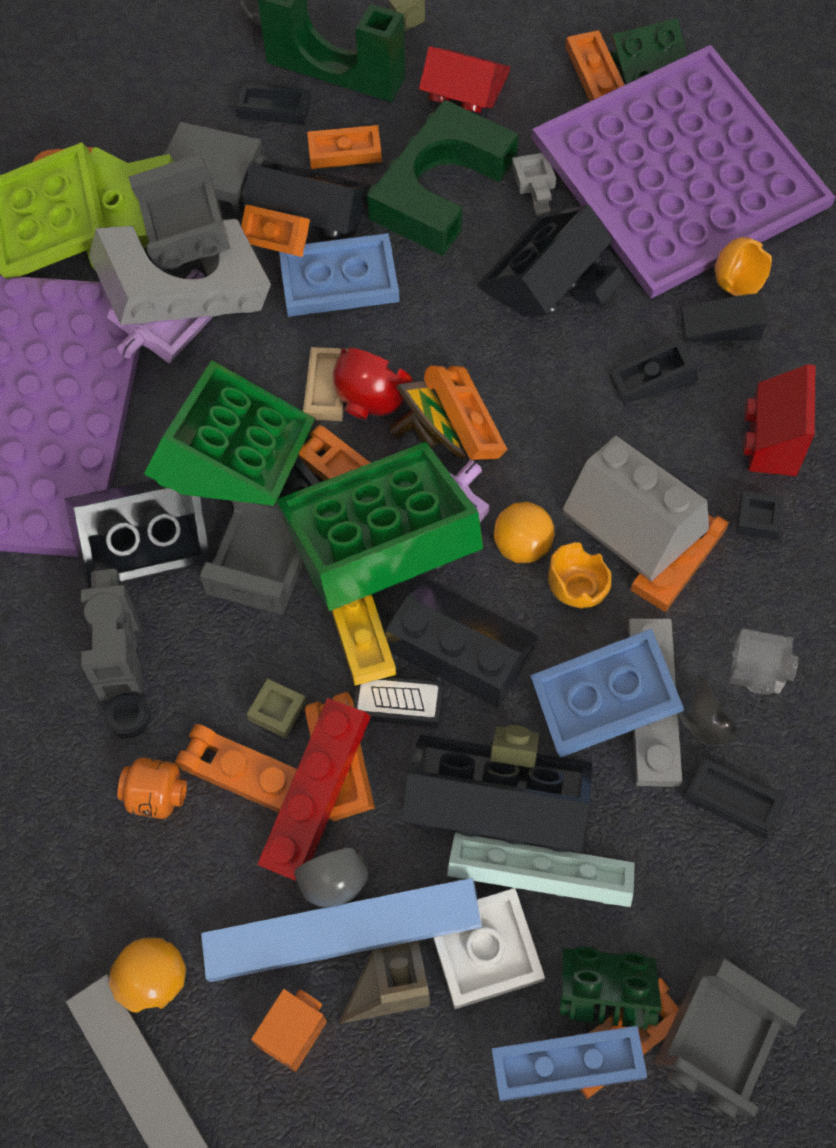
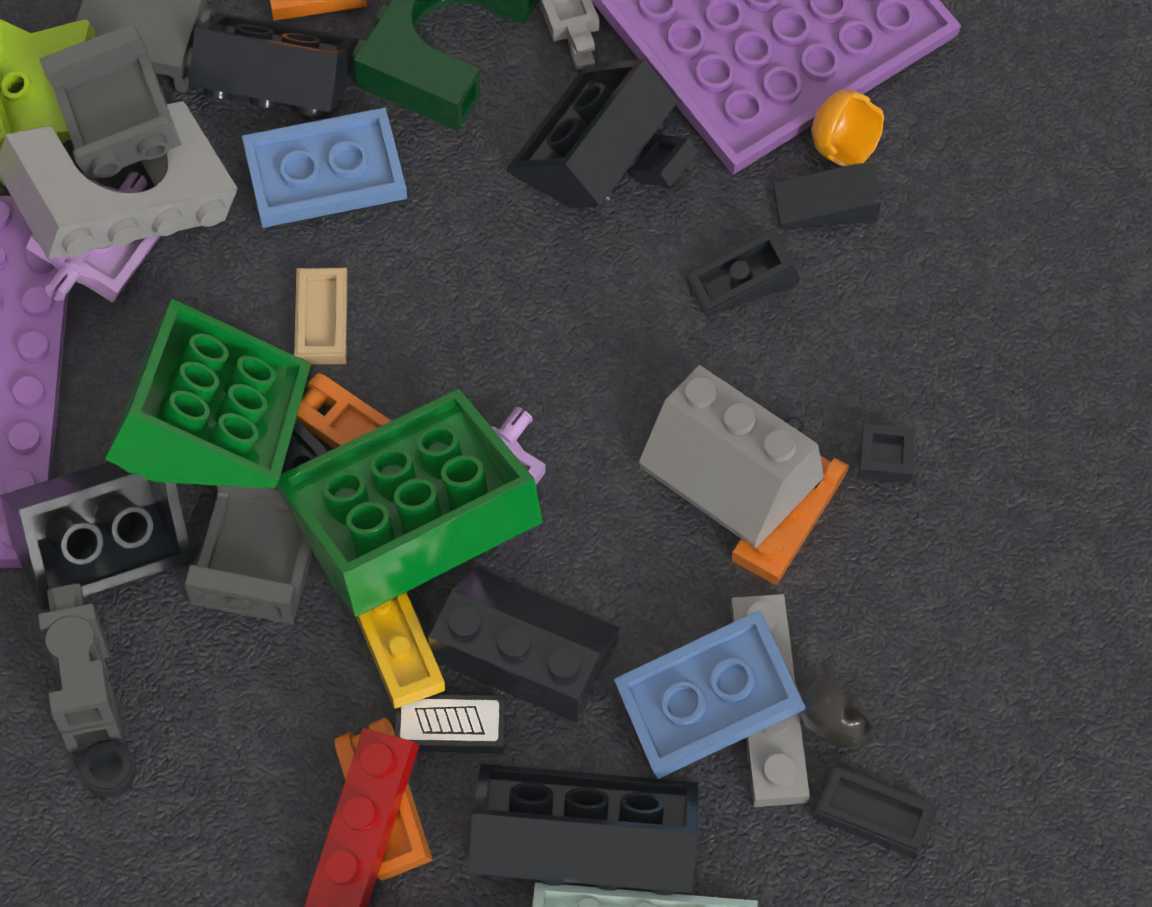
camera: 10 degrees left, 0 degrees up
(151, 788) = (149, 858): orange head -> none
(237, 768) = (255, 825): orange plate -> none
(275, 230) = (236, 114): orange plate -> none
(276, 708) = (297, 745): olive plate -> none
(367, 383) = (377, 315): red cylinder -> none
(426, 418) = (458, 355): shield -> none
(466, 411) = (506, 342): orange plate -> none
(515, 746) = (601, 769): olive plate -> none
(523, 532) = (592, 496): light orange hair -> none
(578, 577) = (665, 549): light orange hair -> none
(762, 662) = (899, 640): clear brick -> none
(781, 422) = (905, 332): red slope -> none

